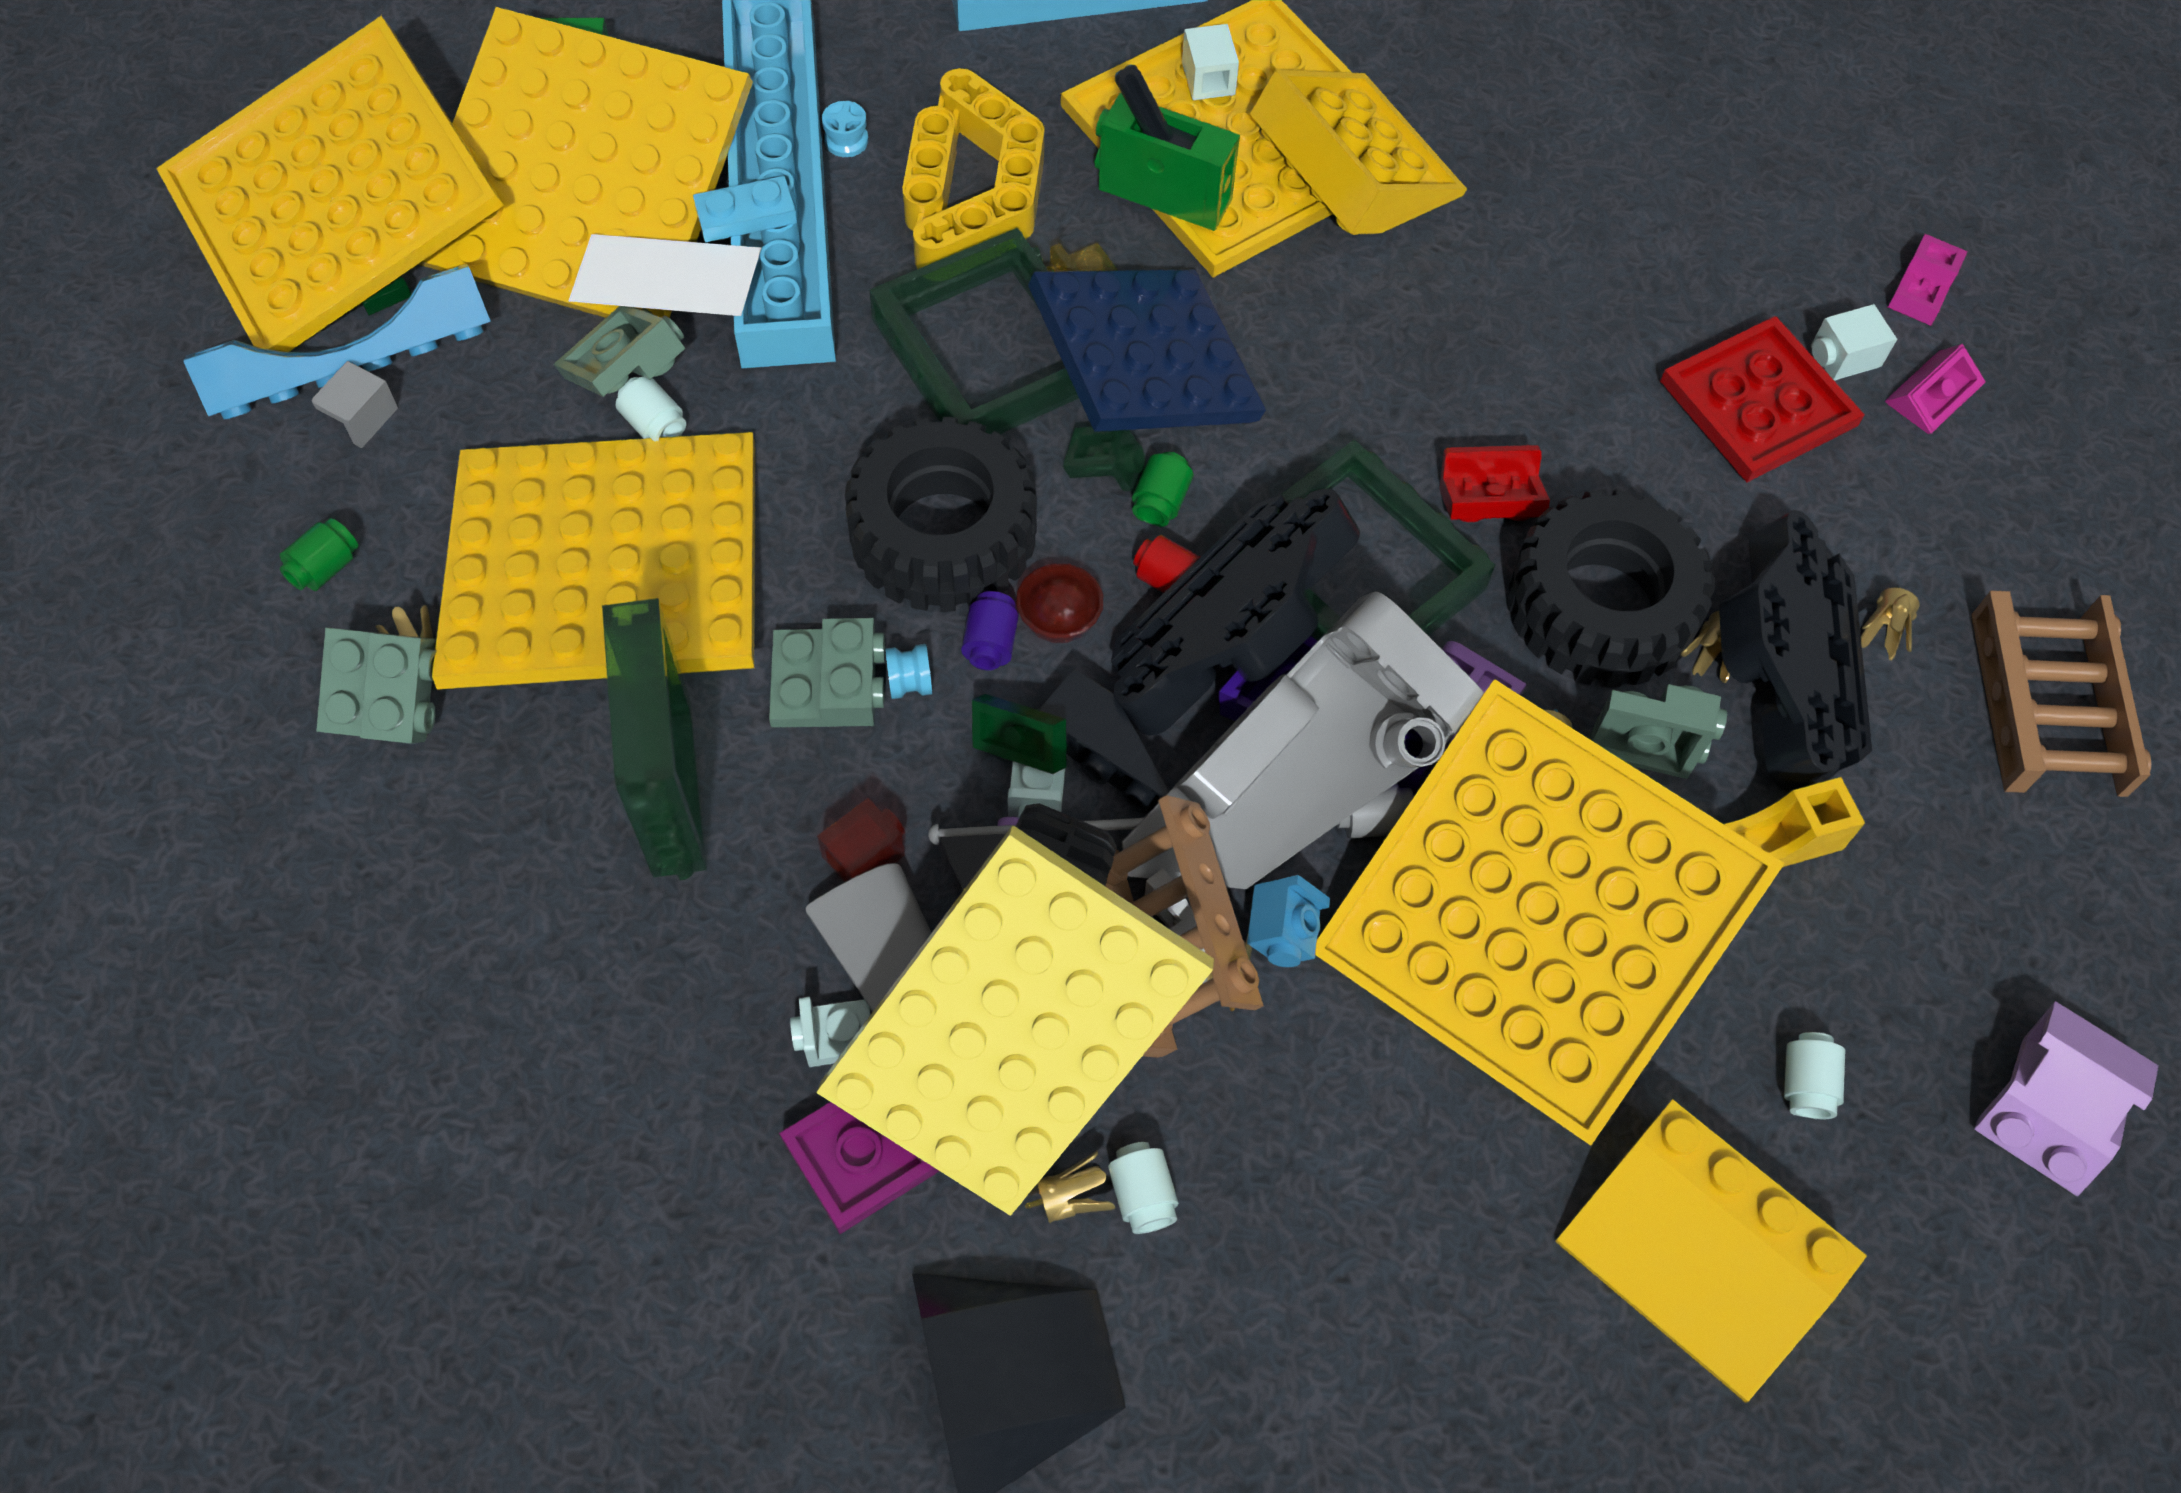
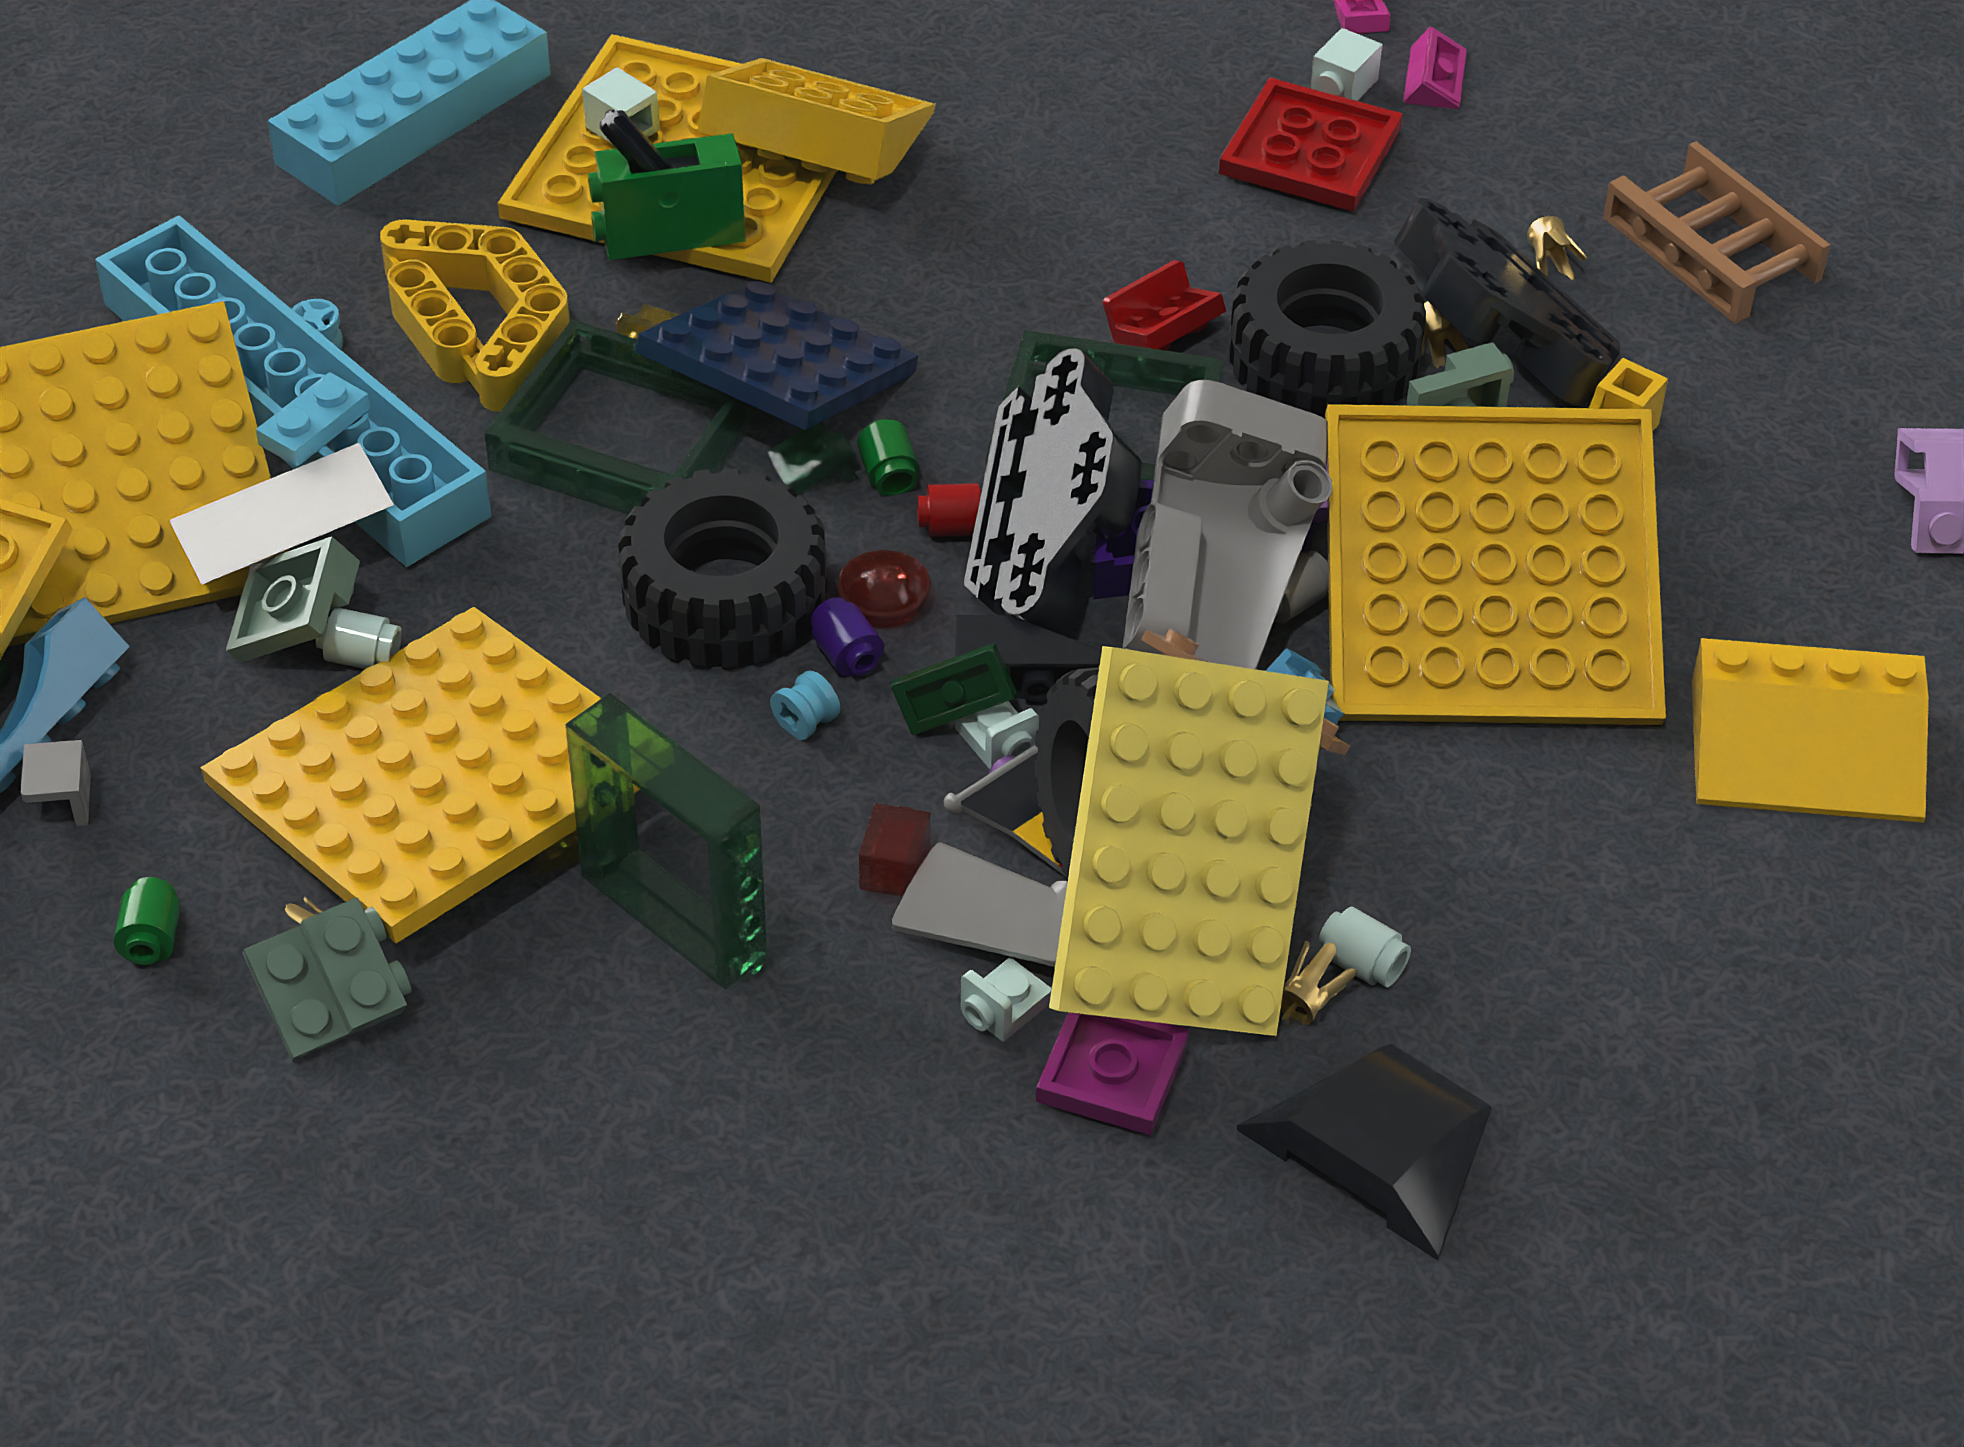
camera: 35 degrees left, 15 degrees down
(827, 675) = (745, 739): sand green plate -> none
(1814, 1076) = (1779, 579): light aqua brick -> none

